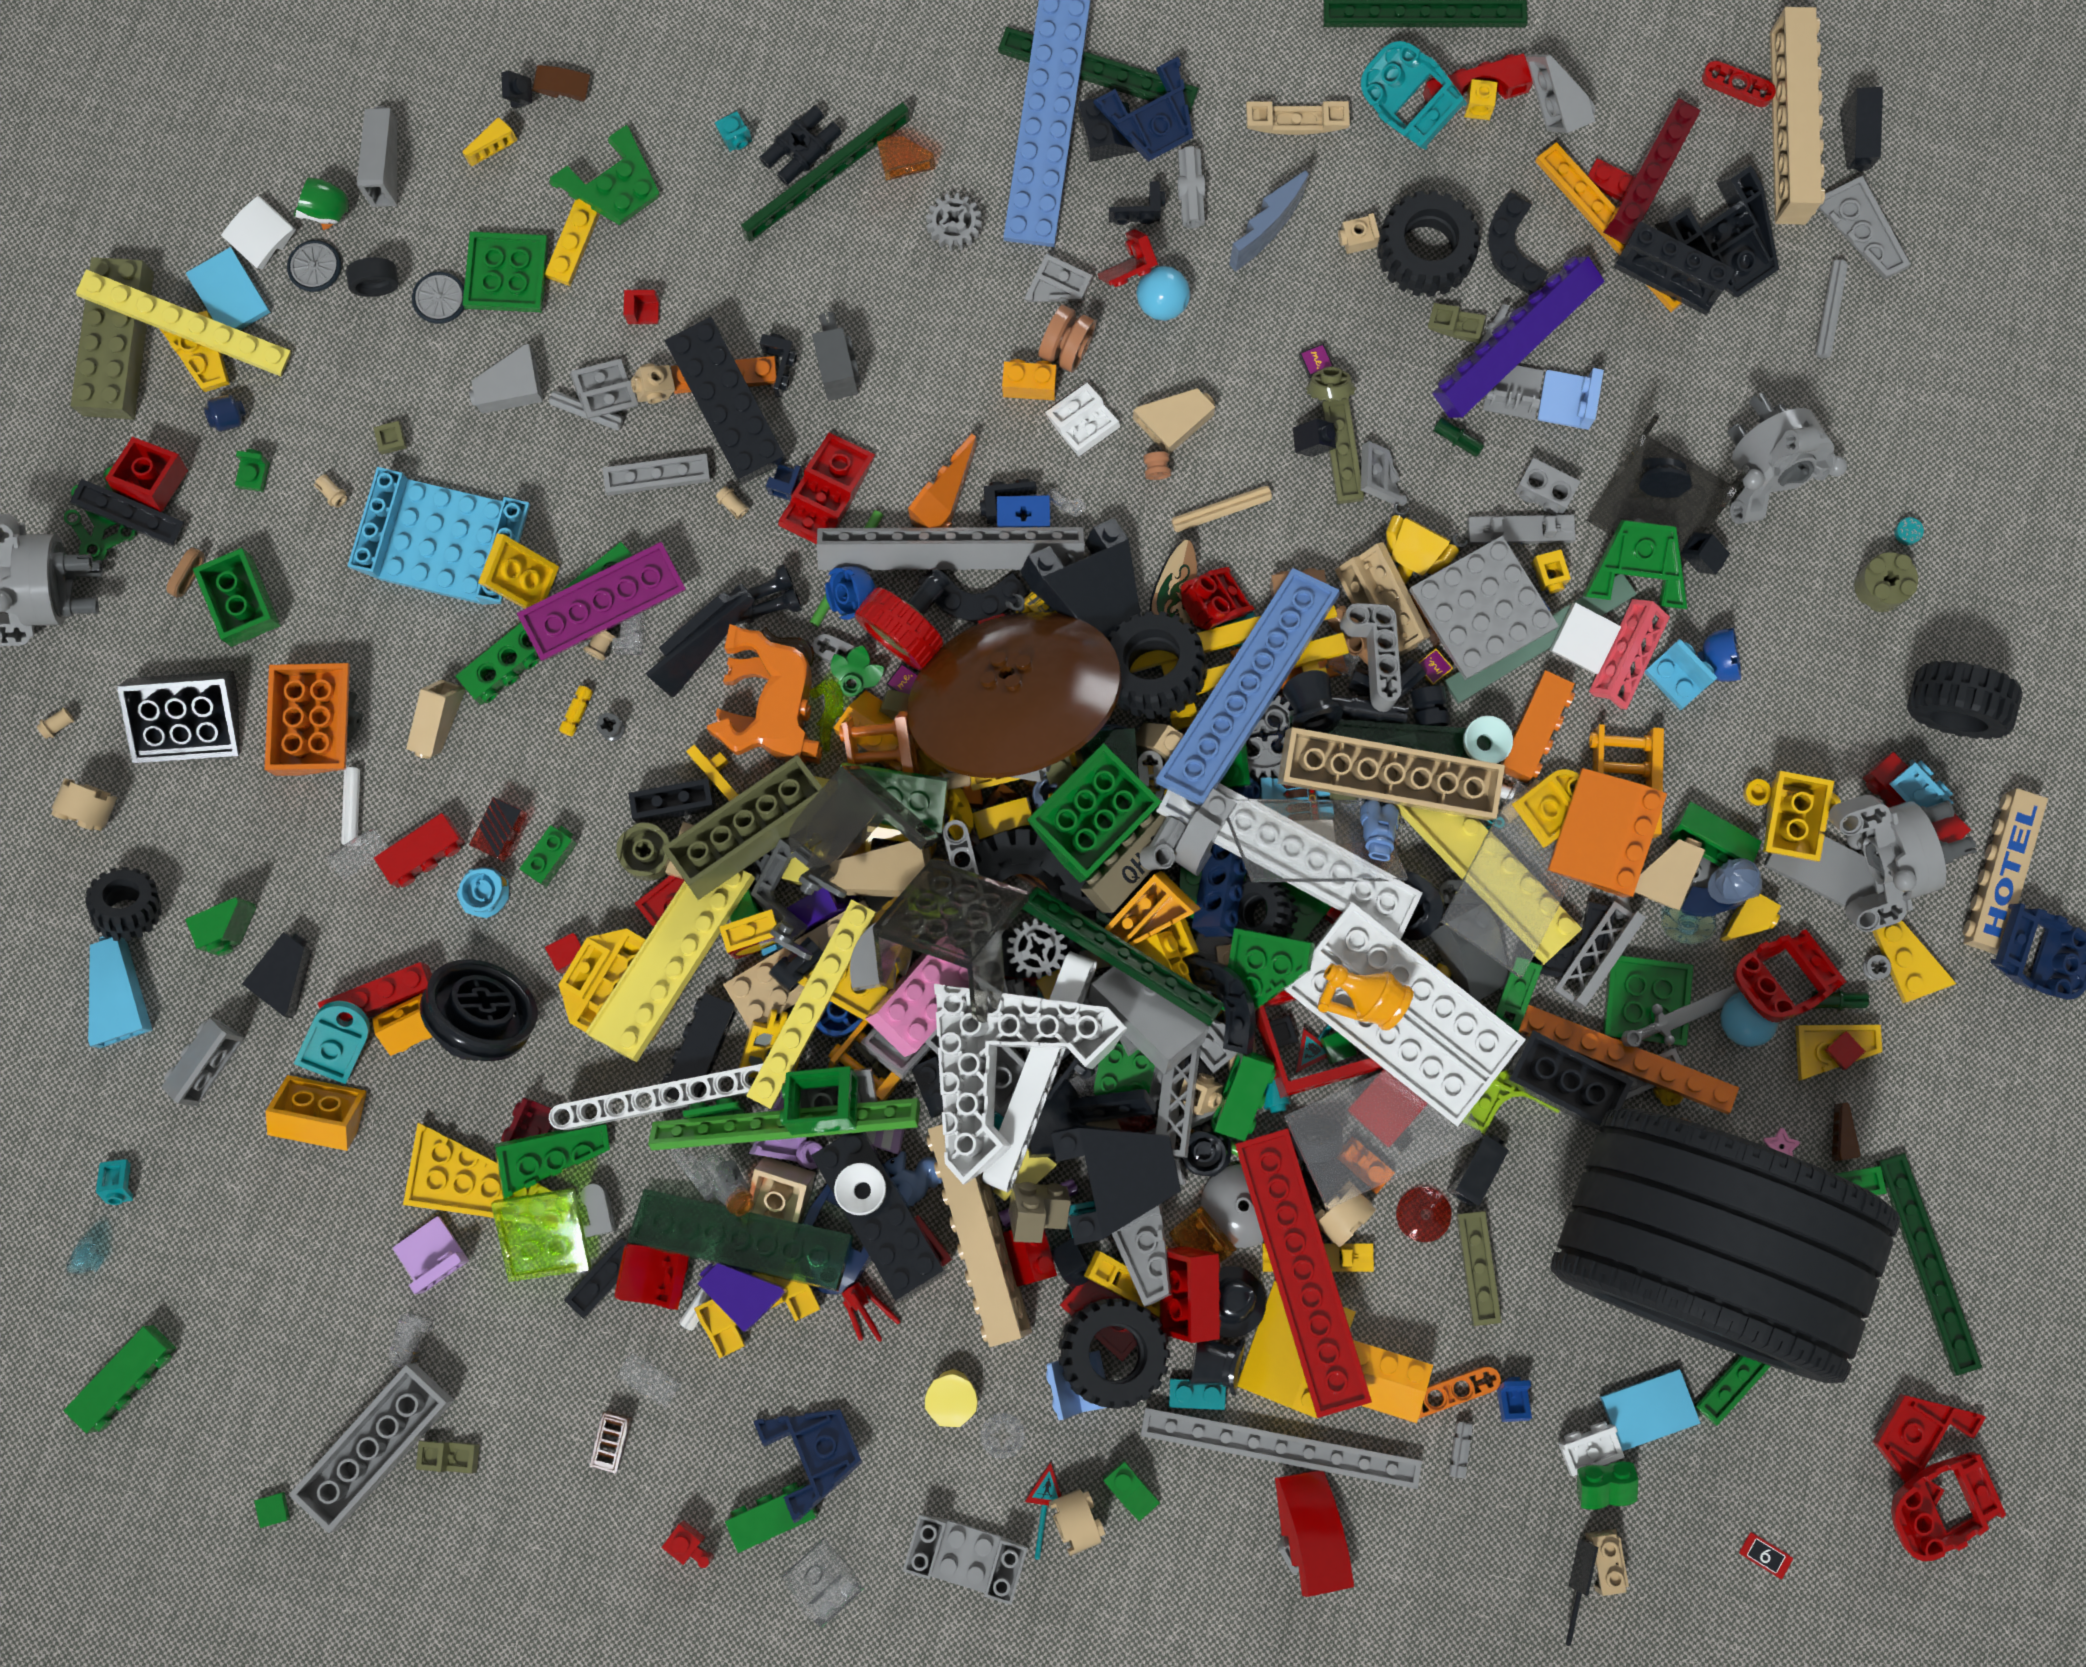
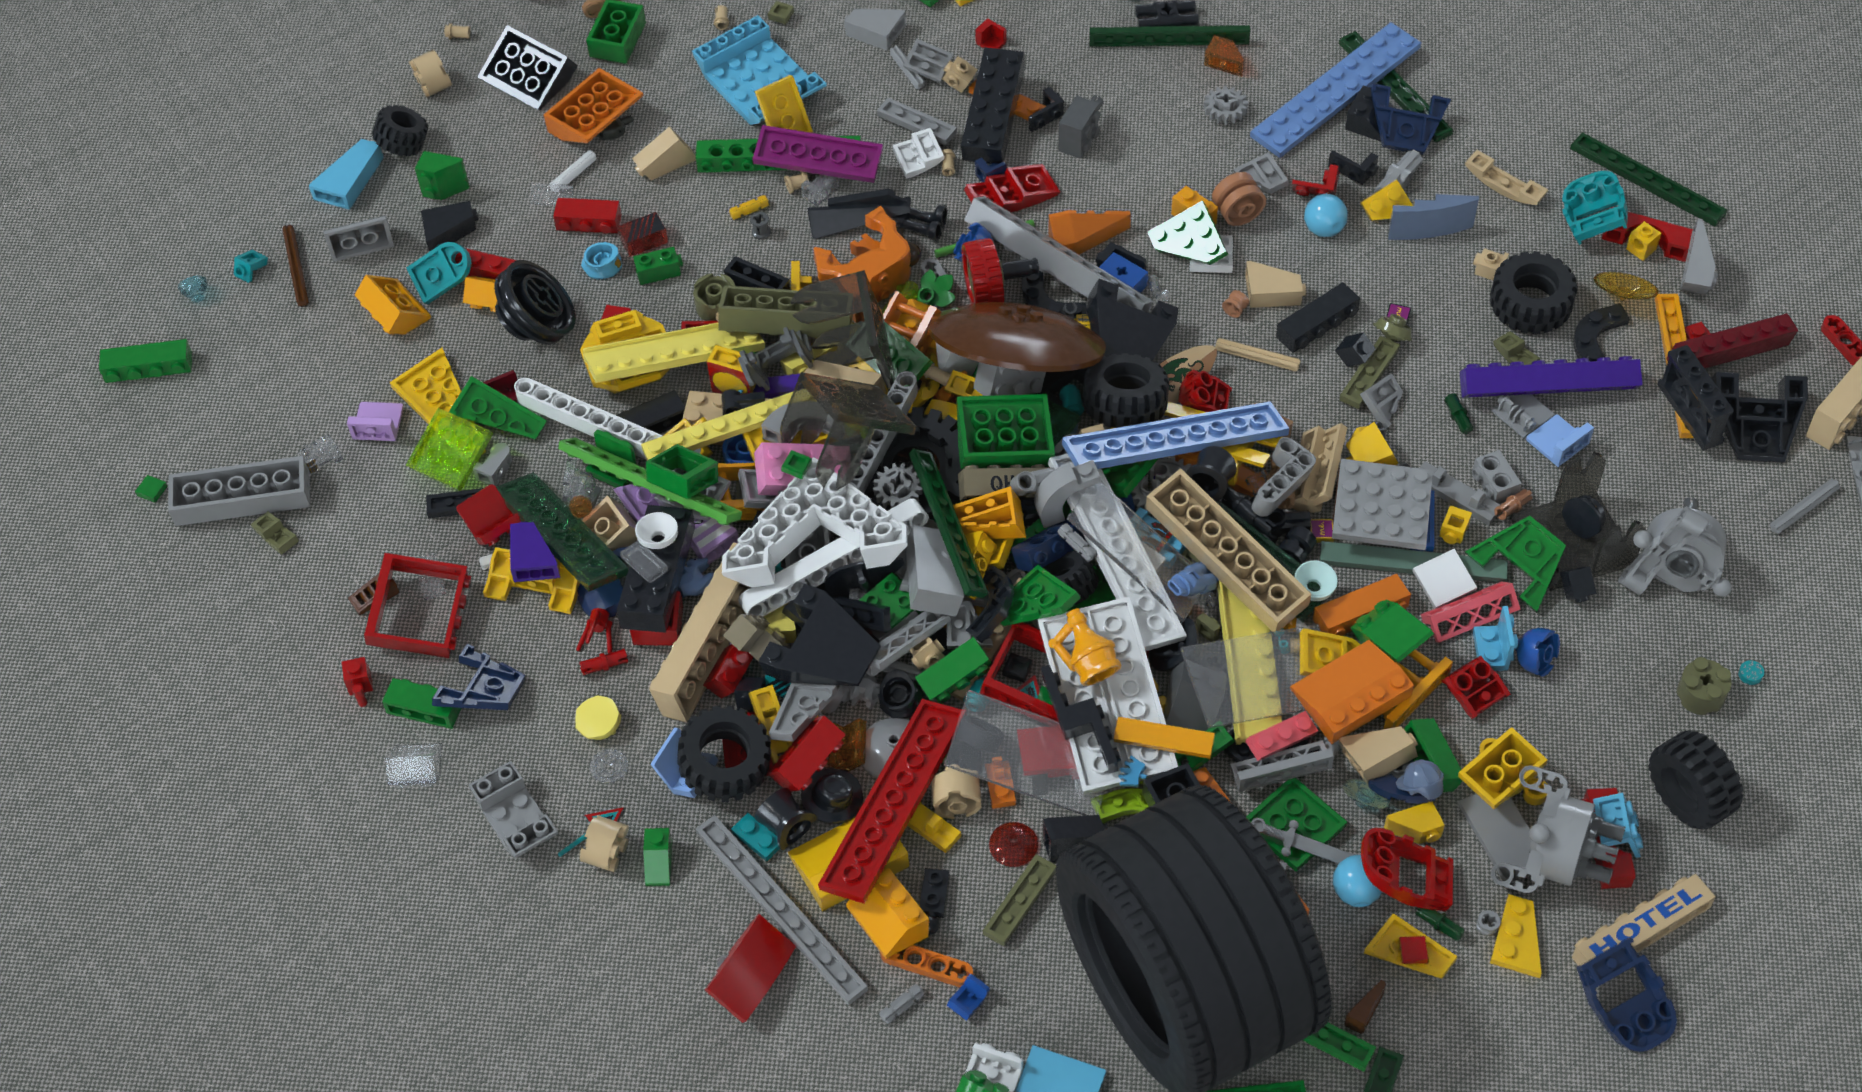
camera: 40 degrees right, 25 degrees down
(163, 1143) = (295, 265): none -> reddish brown axle
(693, 514) = (918, 153): none -> white slope
(722, 1410) = (425, 567): none -> red window
(875, 1229) = (644, 561): none -> clear tile
(900, 1335) = (603, 662): none -> red pin
(929, 1009) = (796, 464): none -> green tile
(1055, 420) = (1190, 236): none -> plate
(1209, 231) = (1380, 204): none -> yellow wing
(1235, 876) = (1077, 542): none -> light grey axle
(1247, 423) = (1318, 317): none -> black brick
(1402, 1326) = (934, 896): none -> black plate
(1408, 1063) = (1081, 719): none -> black bracket
(1419, 856) = (1208, 627): none -> olive plate
(1492, 1076) = (1132, 773): none -> dark azure piece
(1493, 1022) = (1164, 737): none -> light orange tile
(1504, 168) = (1626, 285): none -> clear yellow hat
(1579, 927) = (1281, 736): none -> coral plate
(1583, 505) = (1513, 504): none -> nougat axle
(1596, 743) = (1392, 630): none -> green slope
(1694, 733) = (1476, 686): none -> red slope

